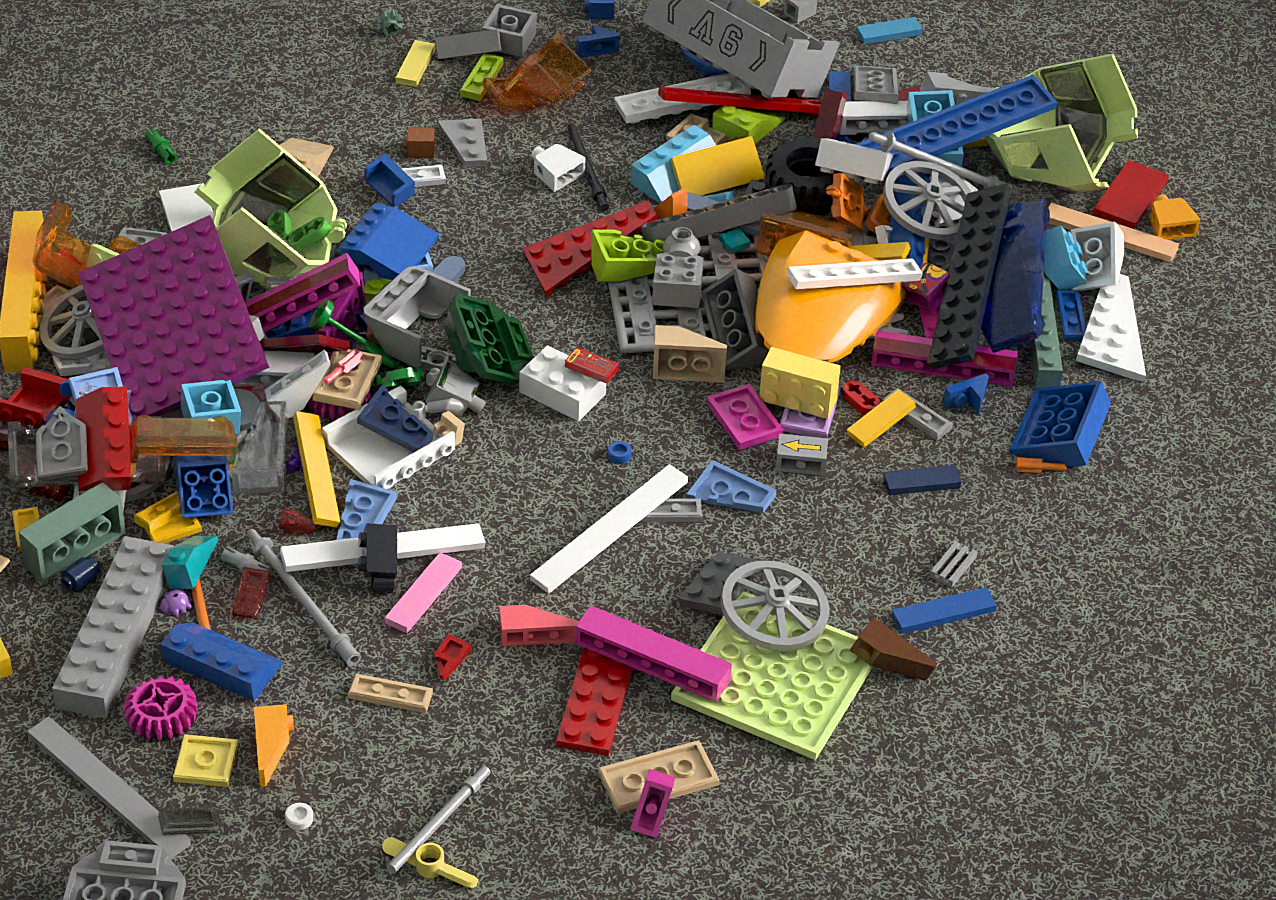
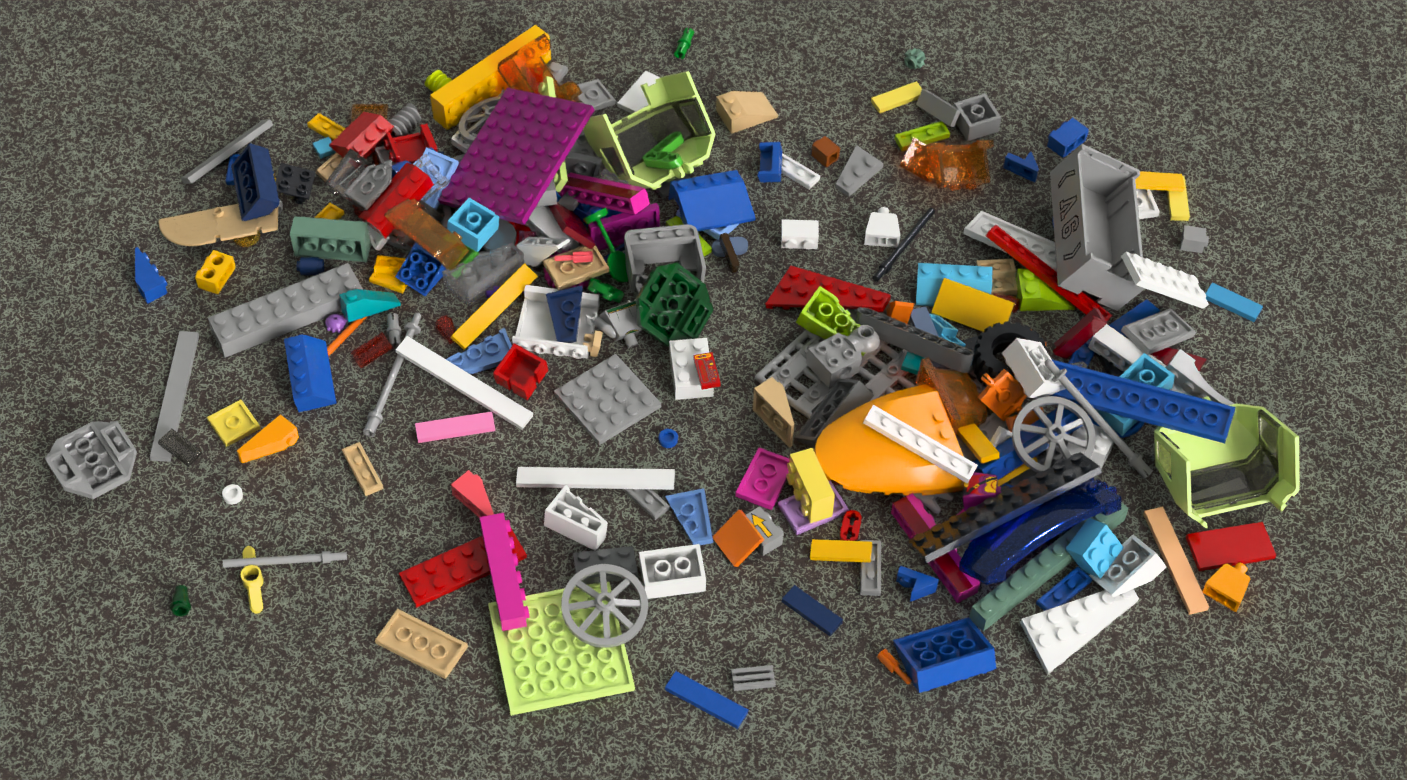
camera: 50 degrees right, 10 degrees up
(160, 708) = (248, 380): dark pink gear -> none
(379, 556) = (447, 385): black hinge -> none
(422, 496) = (520, 371): none -> red piece
(451, 654) = (417, 475): red slope -> none
(461, 272) = (729, 252): none -> dark brown tile
(497, 217) = (799, 234): none -> white brick
(522, 464) = (607, 399): none -> light grey plate
(648, 569) = (575, 520): none -> white wedge
(652, 803) = (389, 653): dark pink slope -> none
(785, 534) = (672, 571): none -> white brick
(796, 471) = (738, 538): none -> orange tile
(840, 34) = (1164, 280): none -> white plate
(889, 651) = (626, 690): reddish brown slope -> none

